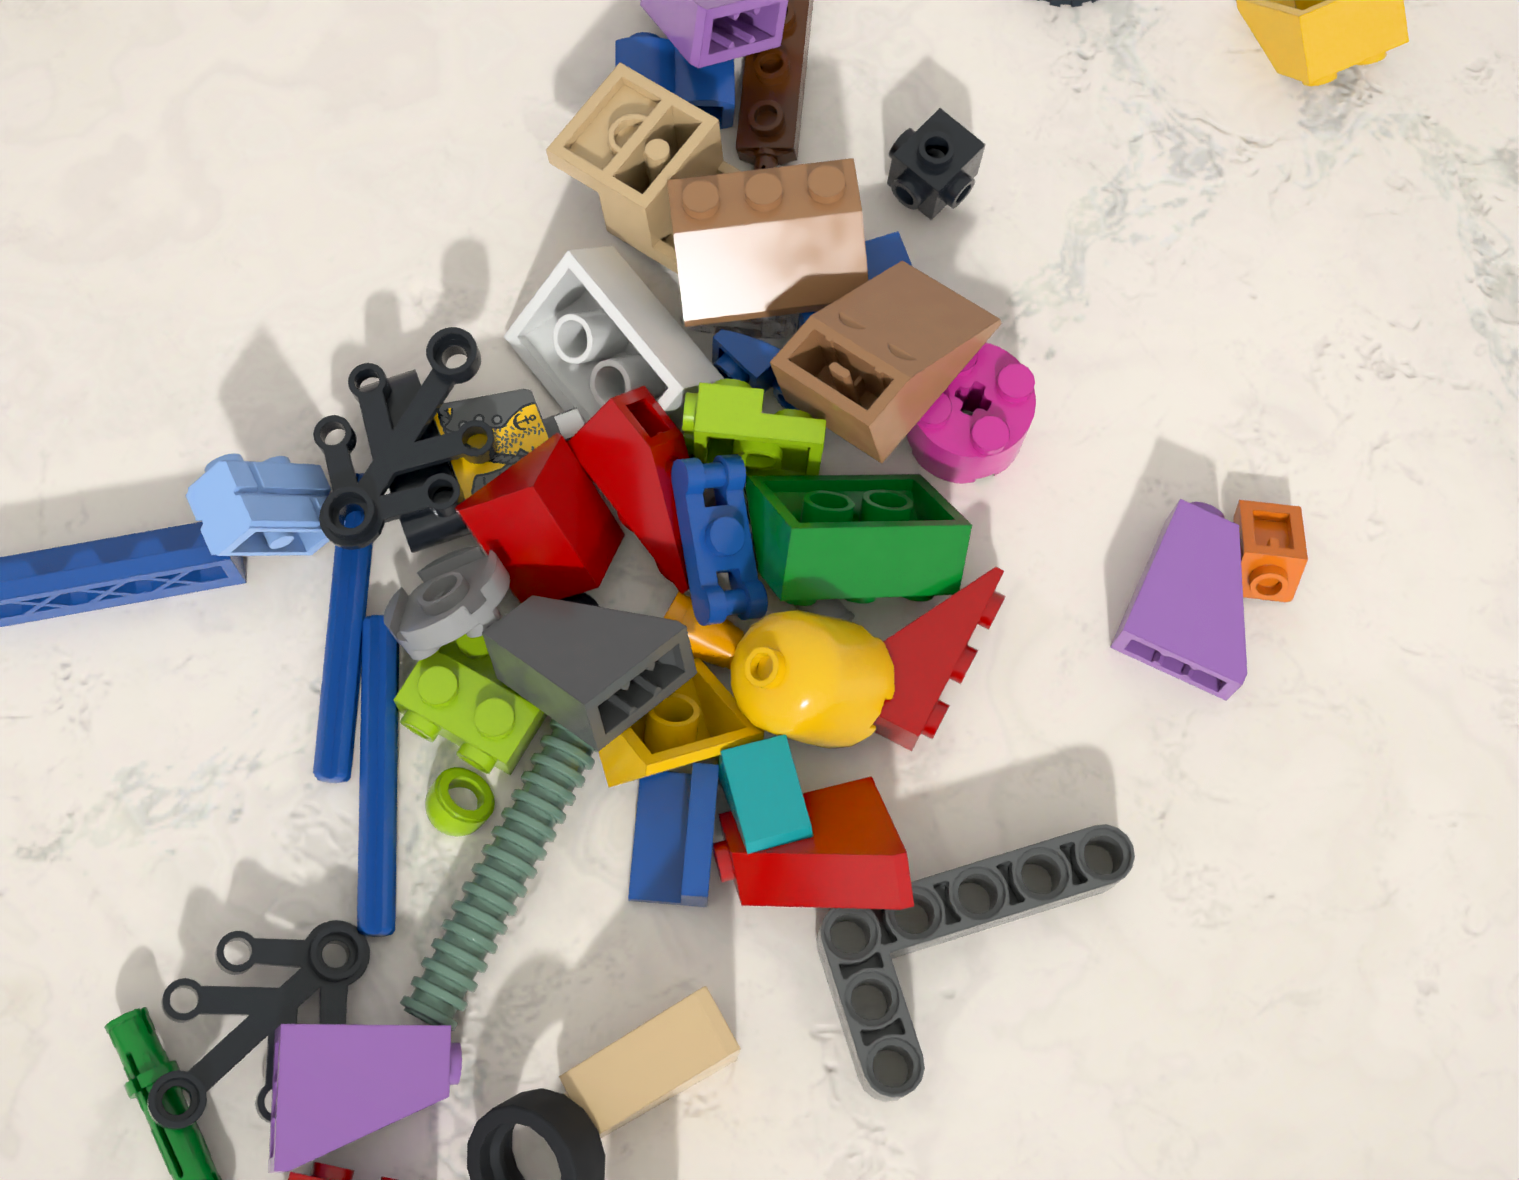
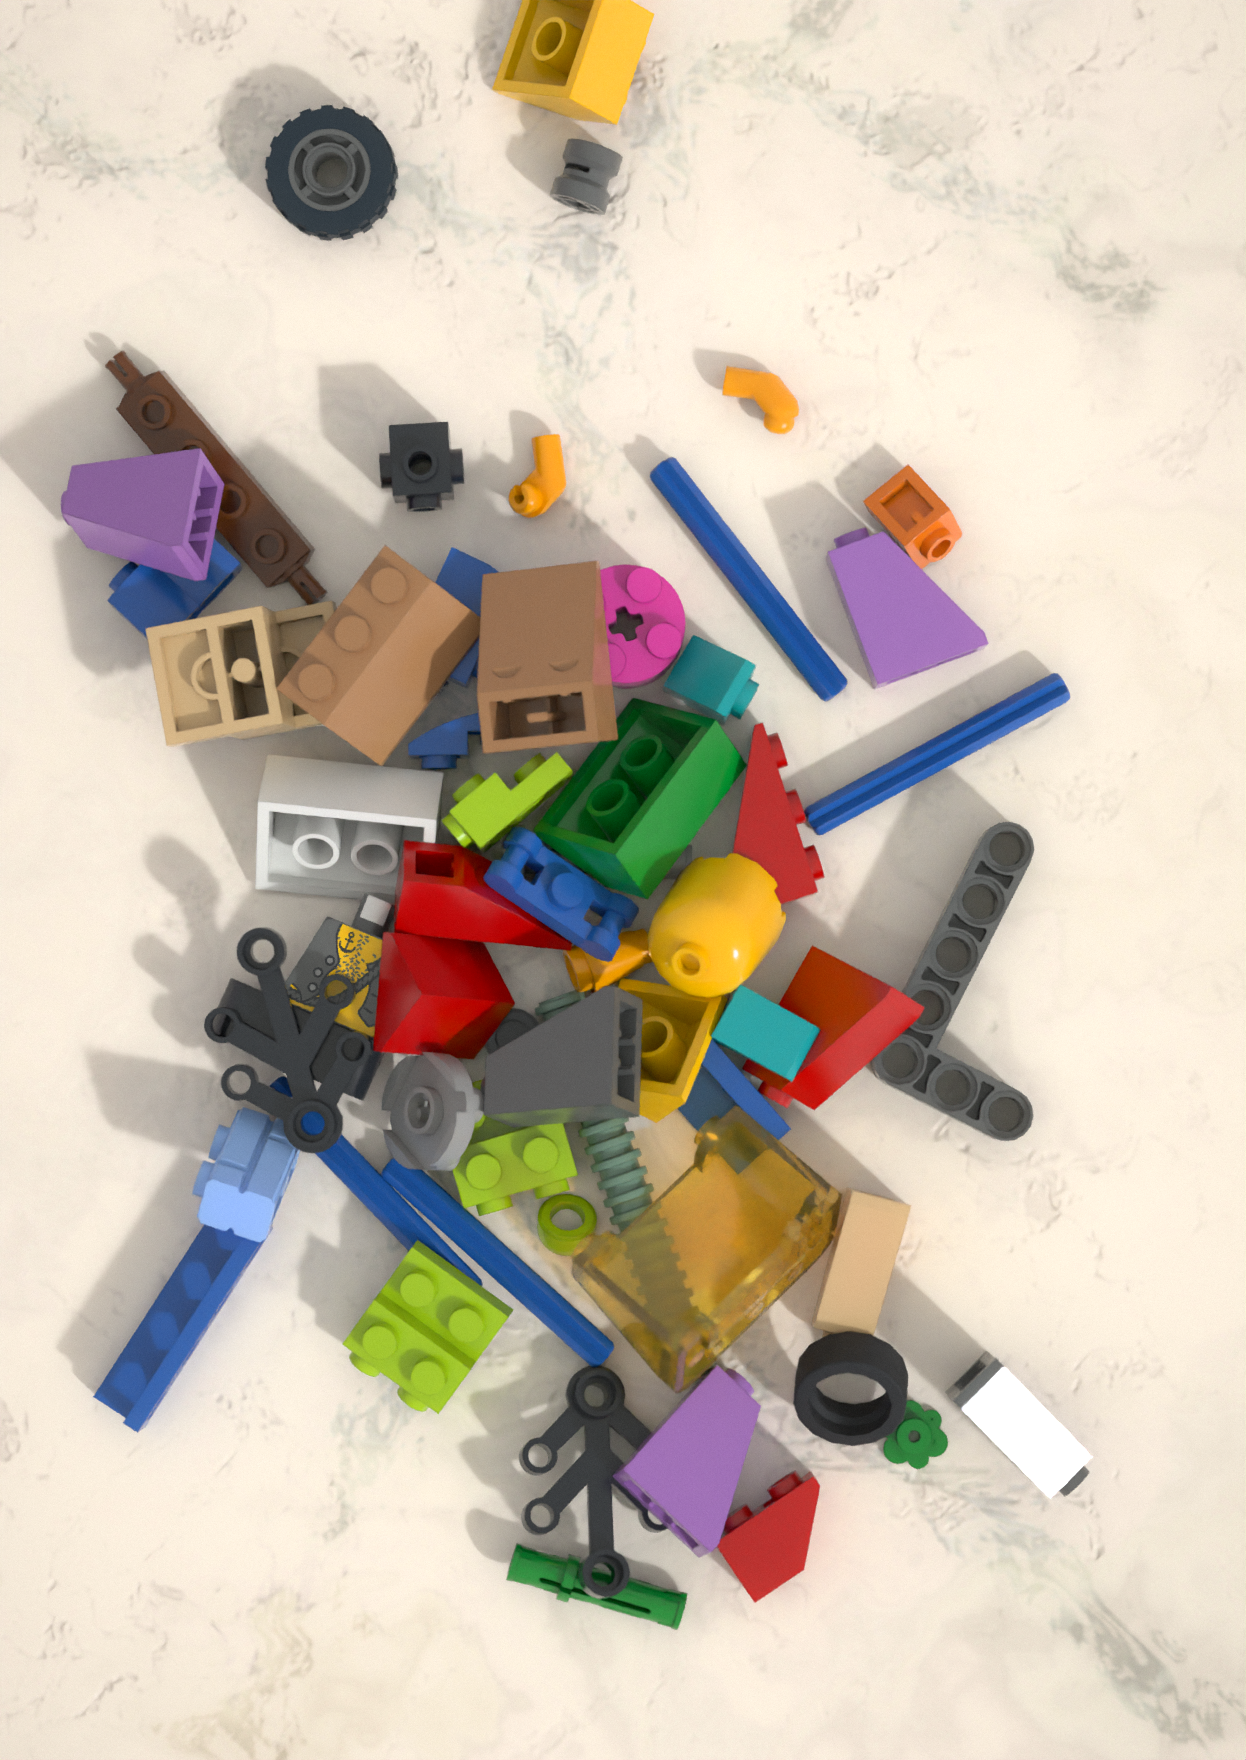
camera: 40 degrees left, 15 degrees up
(264, 764) = (426, 1329): none -> lime plate
(540, 927) = (710, 1249): none -> clear yellow windscreen
(1001, 507) = (712, 680): none -> teal slope
(1009, 270) = (544, 483): none -> light orange arm
(1093, 477) = (748, 579): none -> blue axle
(1115, 738) = (937, 754): none -> blue axle
(1239, 358) = (768, 392): none -> light orange arm
(1255, 99) = (586, 176): none -> dark grey wheel

